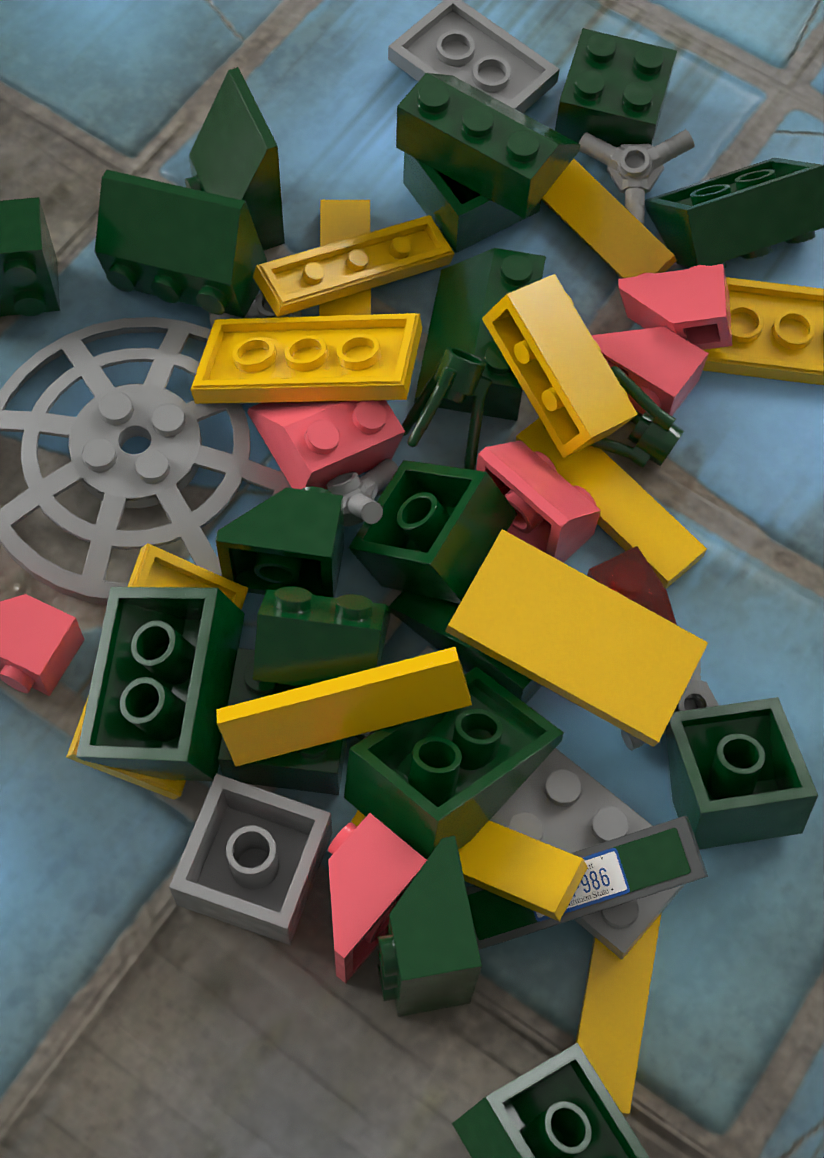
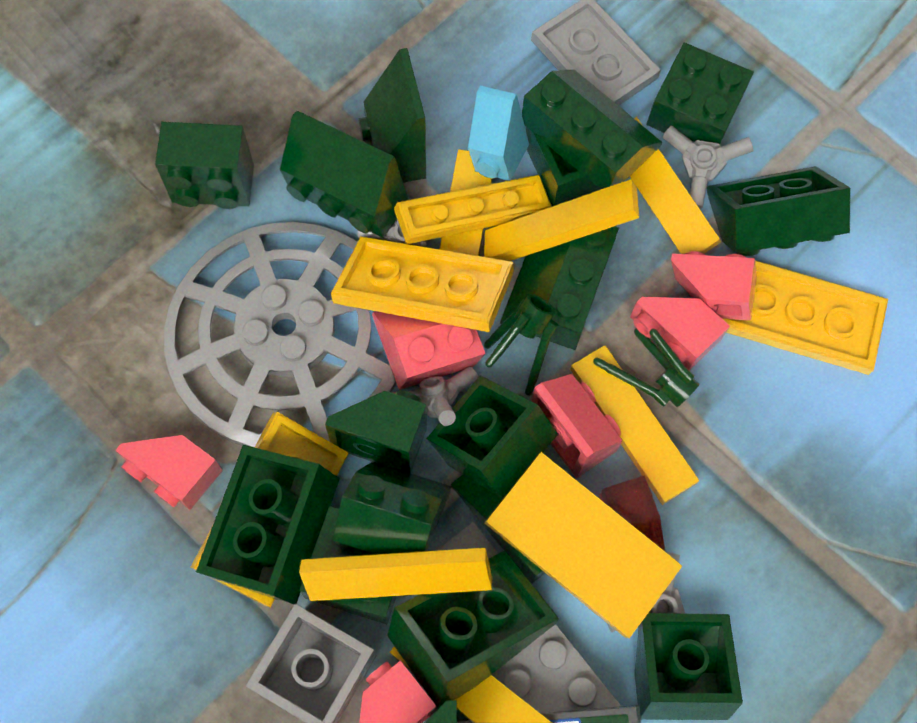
camera: 10 degrees right, 5 degrees up
(369, 165) = (497, 134): none -> medium azure slope
(476, 258) = (563, 222): none -> yellow tile
(559, 365) = (611, 322): yellow brick -> none

